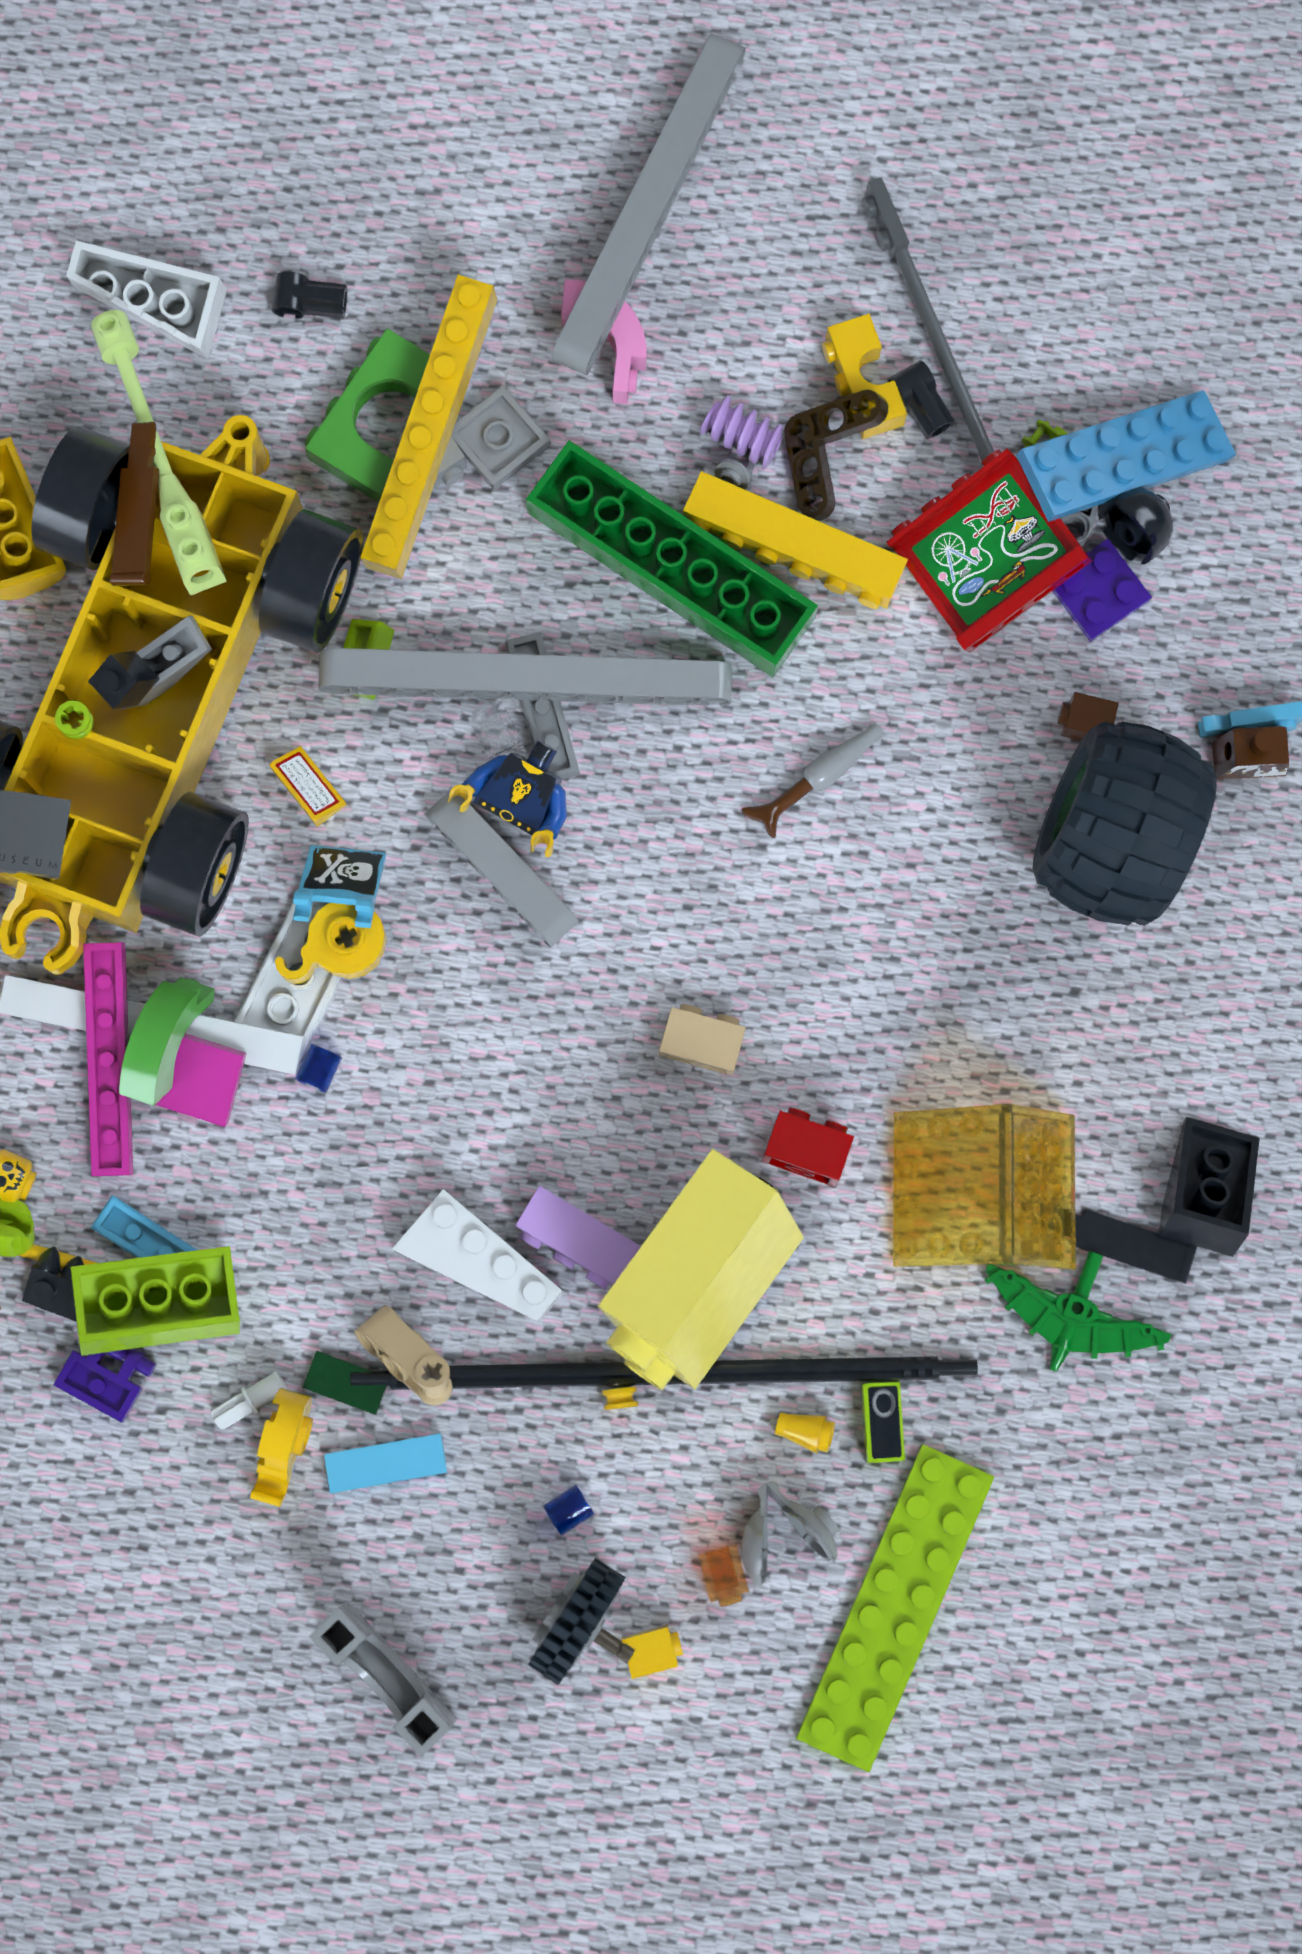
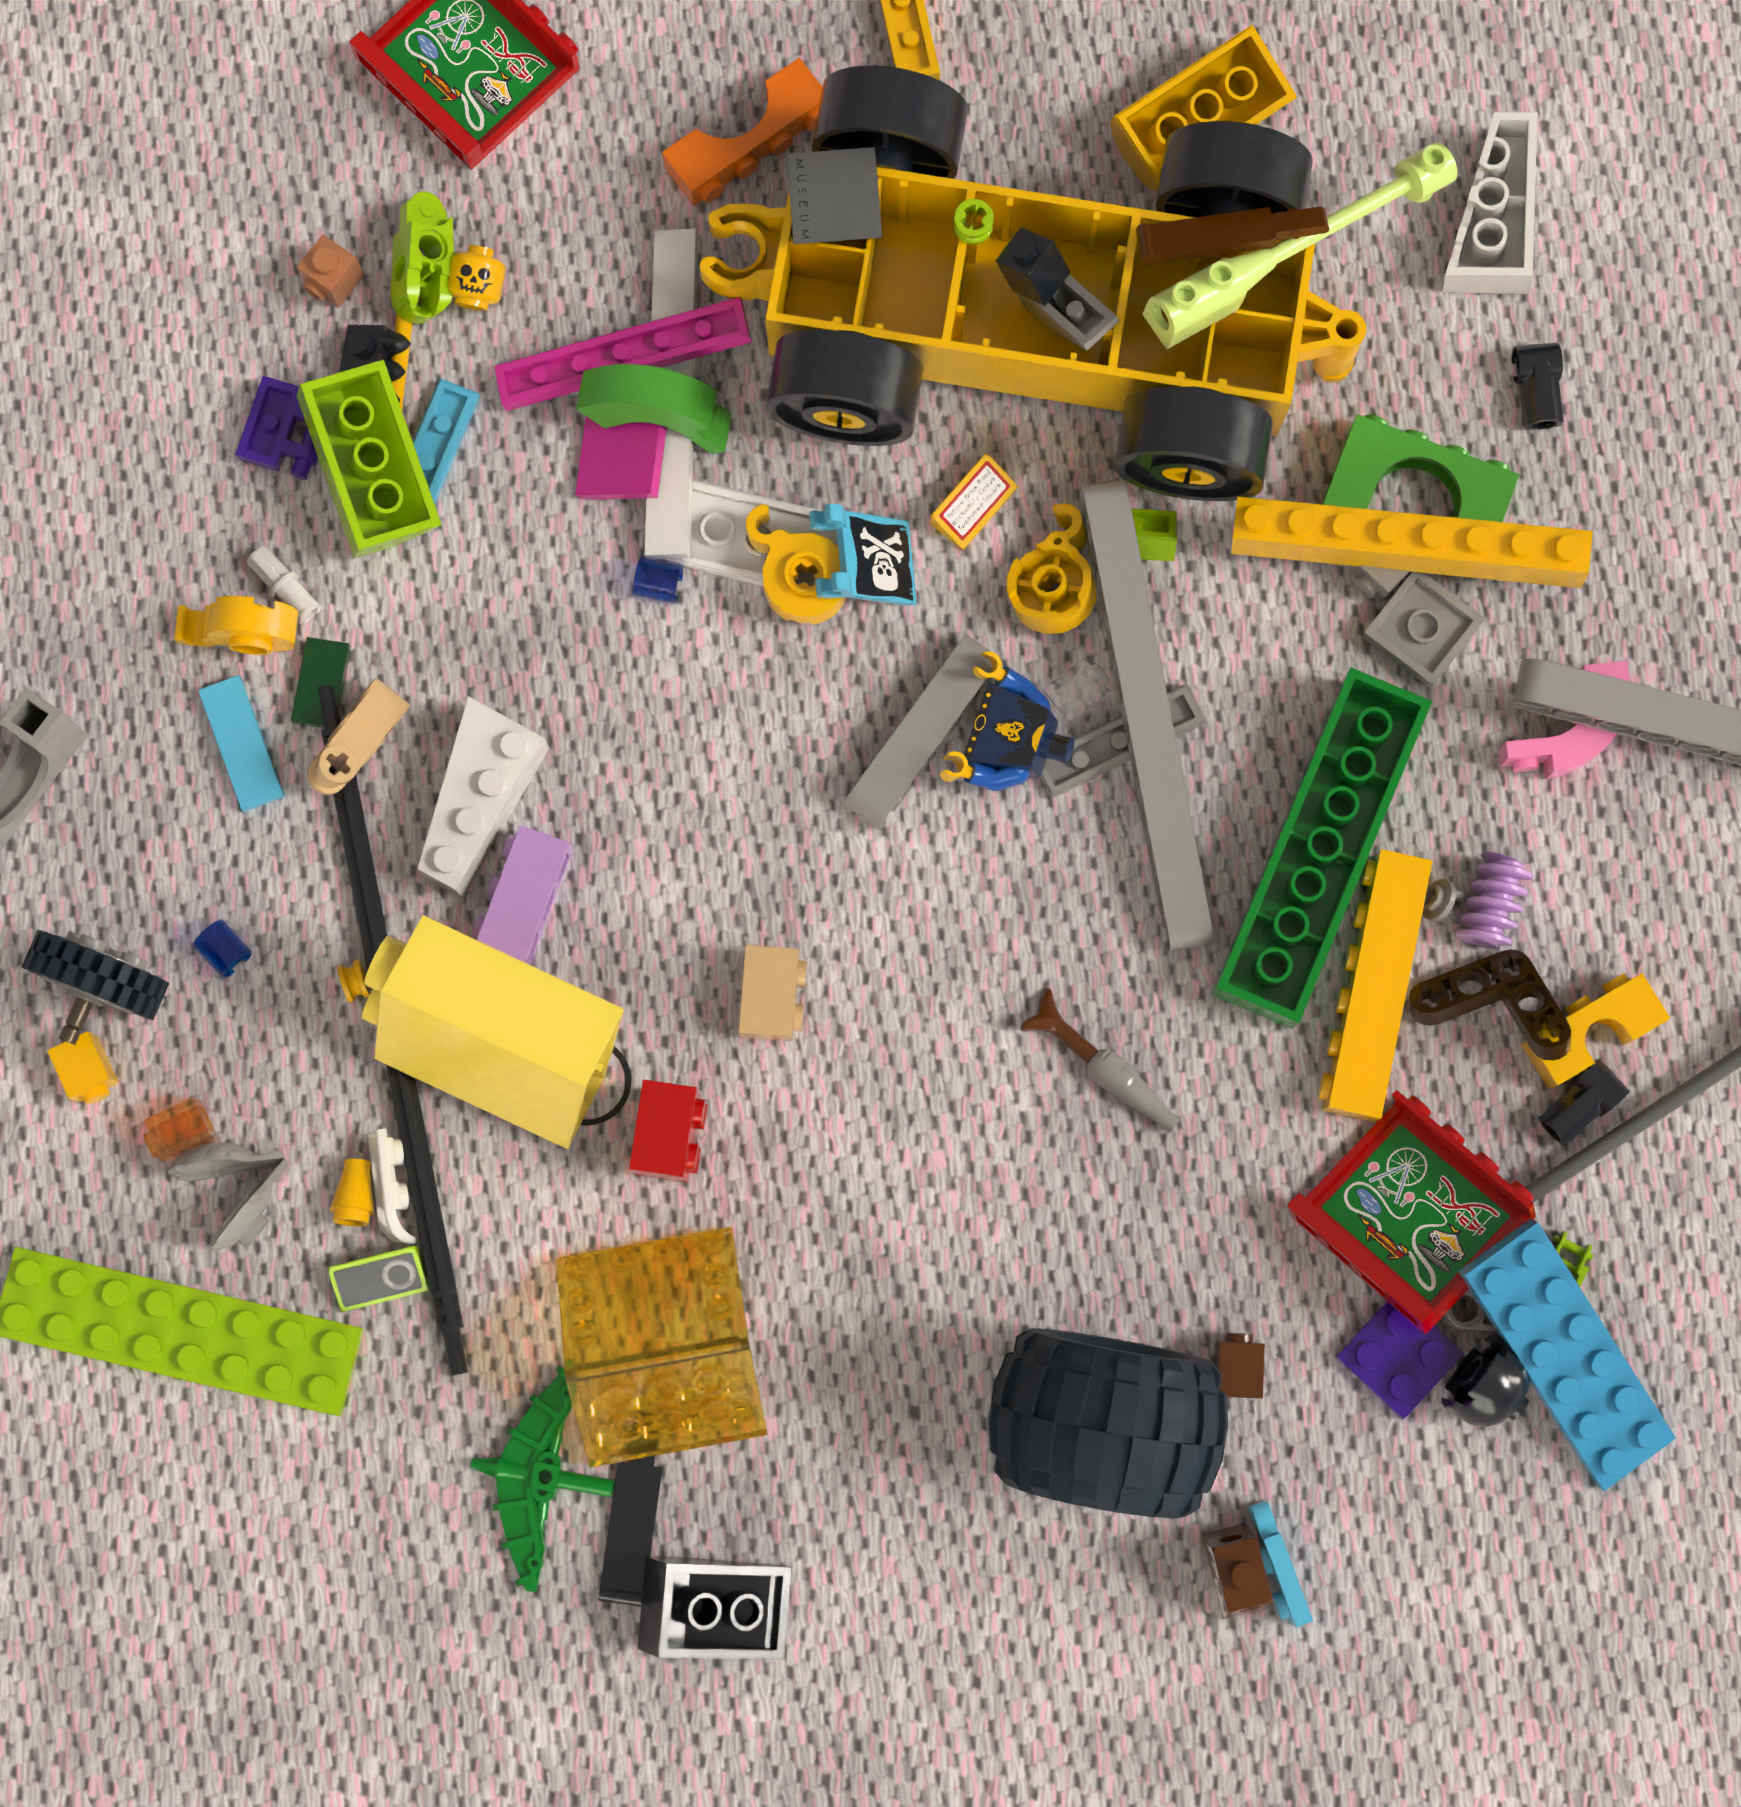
camera: 80 degrees right, 0 degrees up
(377, 727) = (1052, 563): none -> yellow piece
(813, 1399) = (388, 1193): none -> white piece

